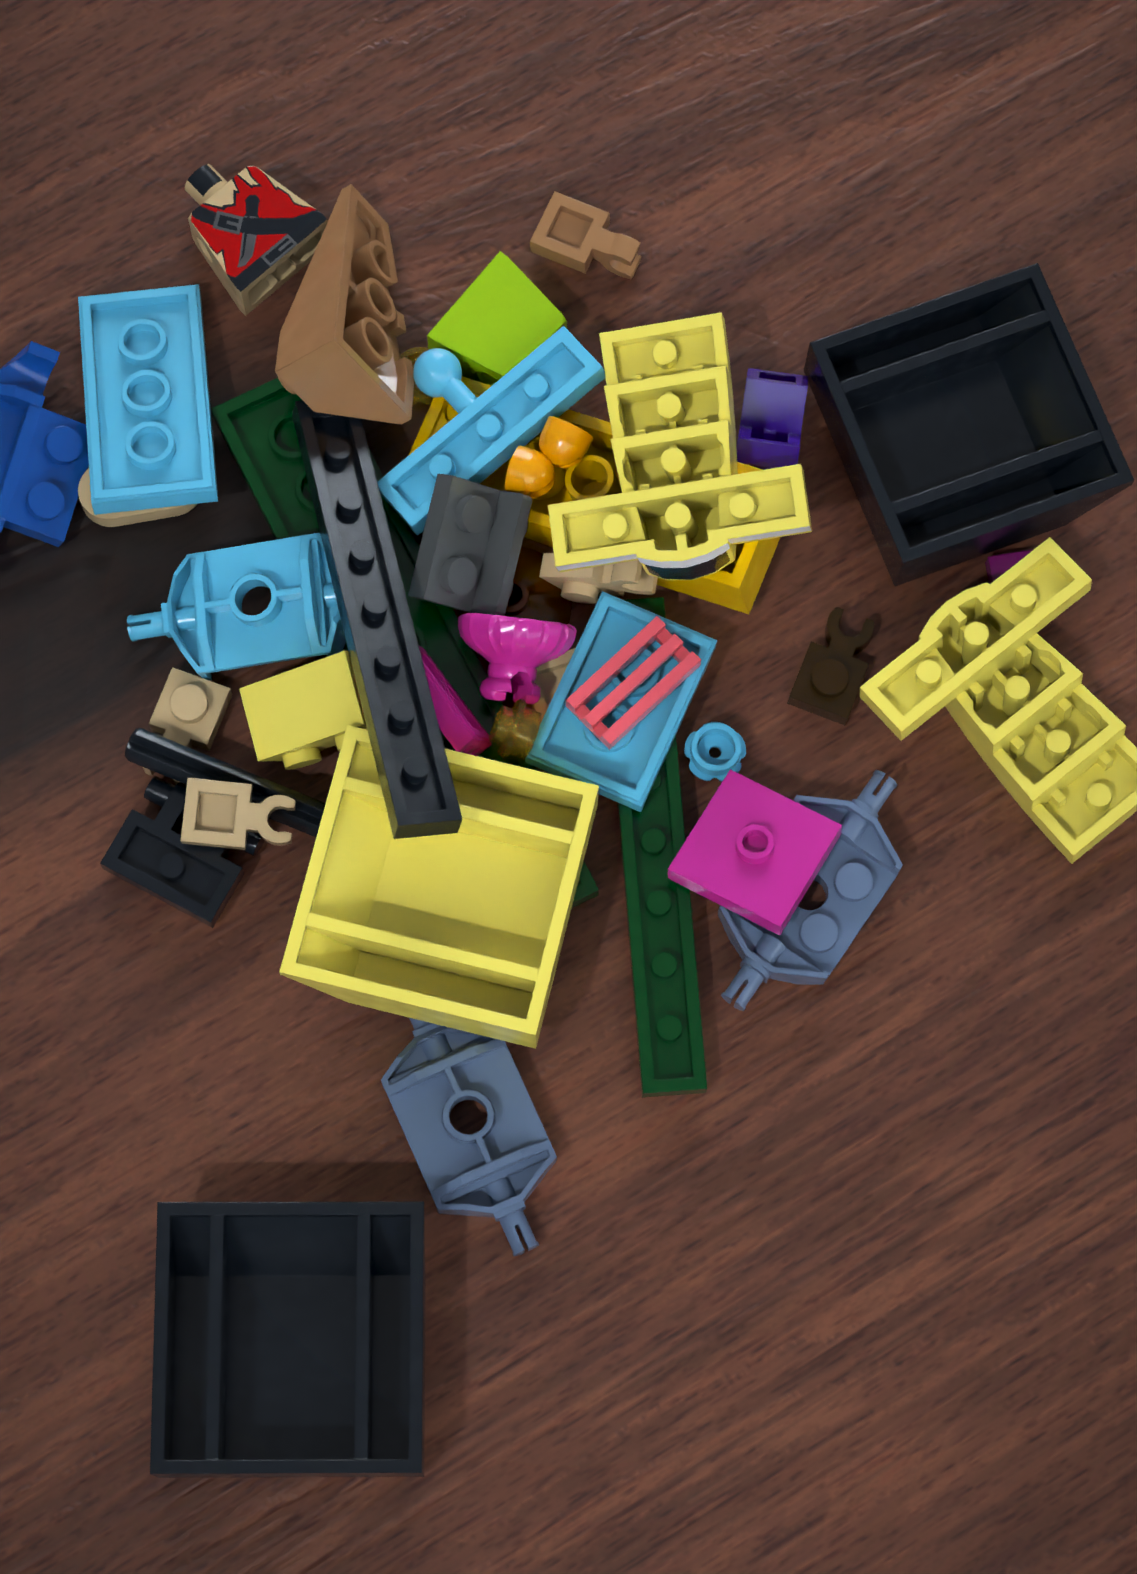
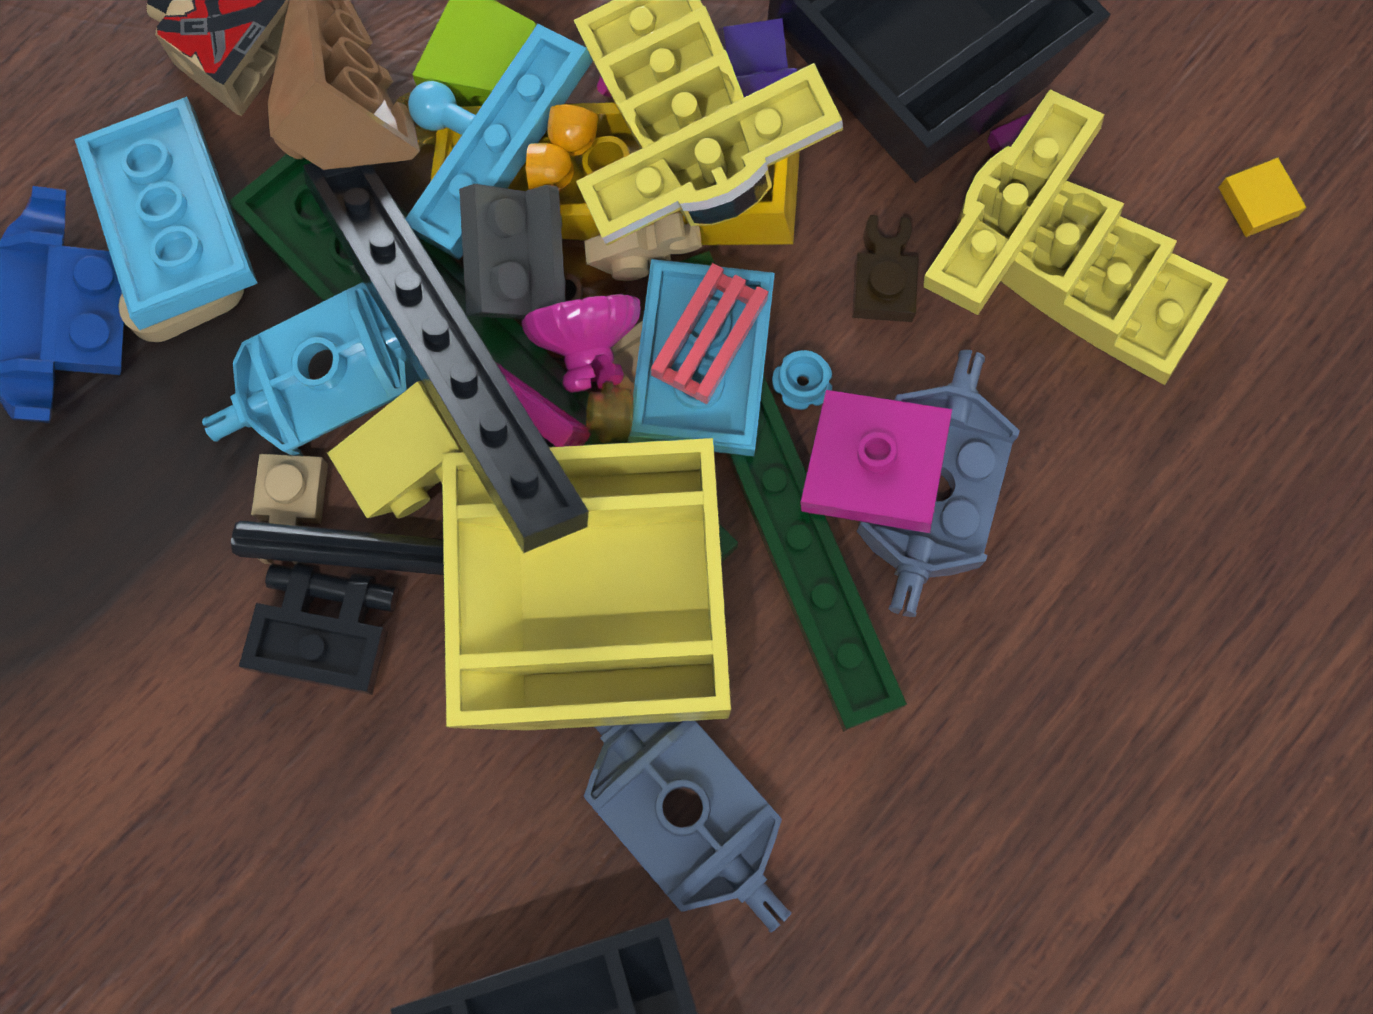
camera: 15 degrees left, 0 degrees up
(223, 815) = (347, 579): tan plate -> none

